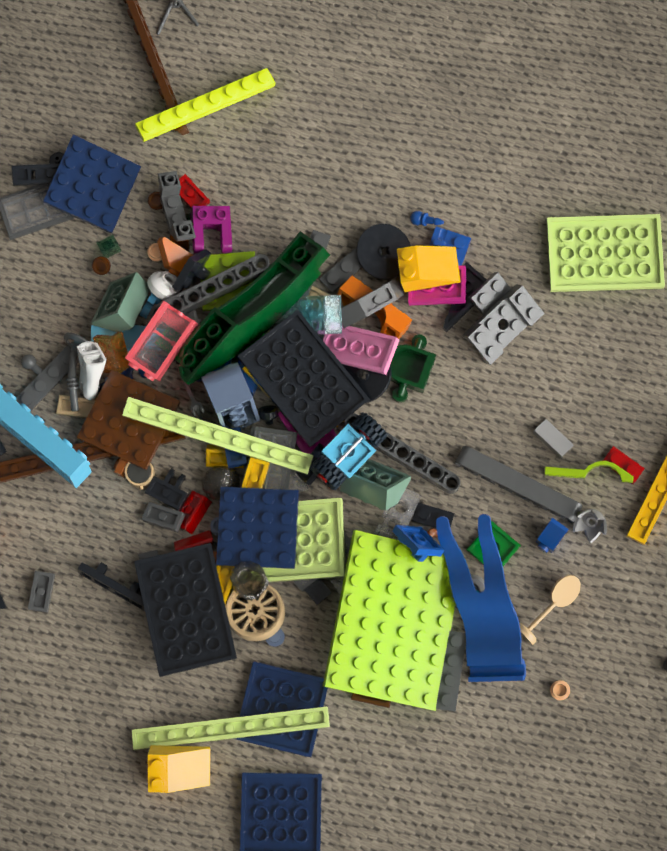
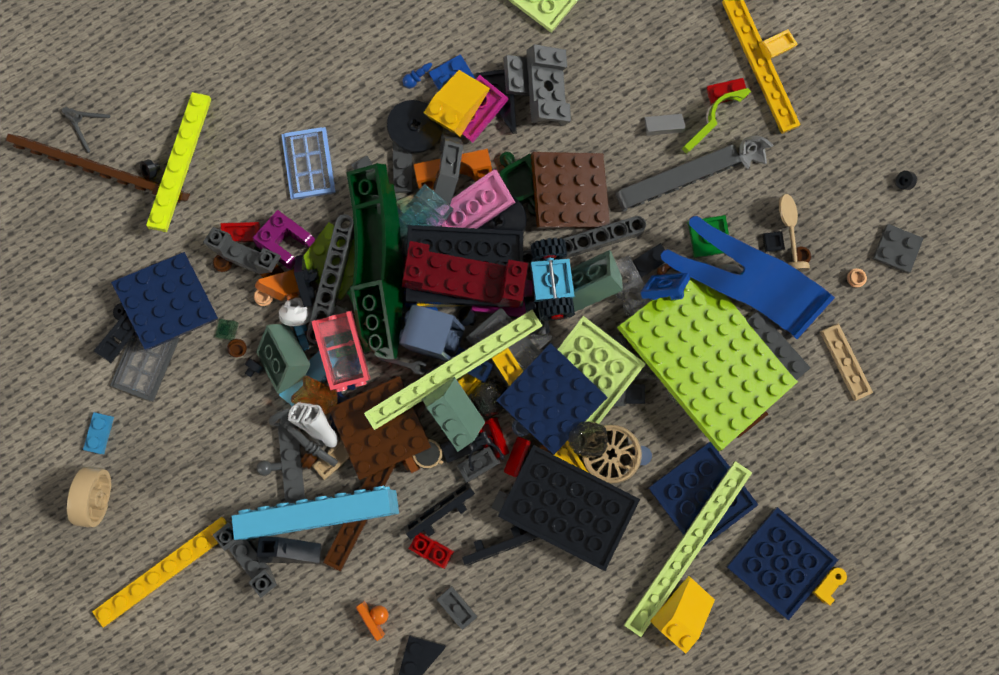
camera: 50 degrees left, 5 degrees up
(60, 388) = (308, 460): none -> reddish brown plate
(69, 536) = (431, 550): none -> red slope
(88, 513) = (452, 501): none -> black hinge
(97, 289) = (253, 367): none -> black tile
(178, 501) = (482, 440): none -> black helmet
(182, 87) = (149, 169): none -> black tile
(184, 464) = (454, 413): none -> sand green slope
(287, 198) = (308, 163): none -> clear piece
(292, 382) = (464, 277): none -> dark red plate
(434, 409) = (570, 190): none -> reddish brown plate
(484, 737) = (846, 362): none -> tan tile
(532, 601) = (773, 241): none -> black tile
(541, 632) = (803, 254): none -> reddish brown plate
(551, 536) = (739, 185): blue slope -> none
(613, 704) = (898, 248): none -> dark grey plate

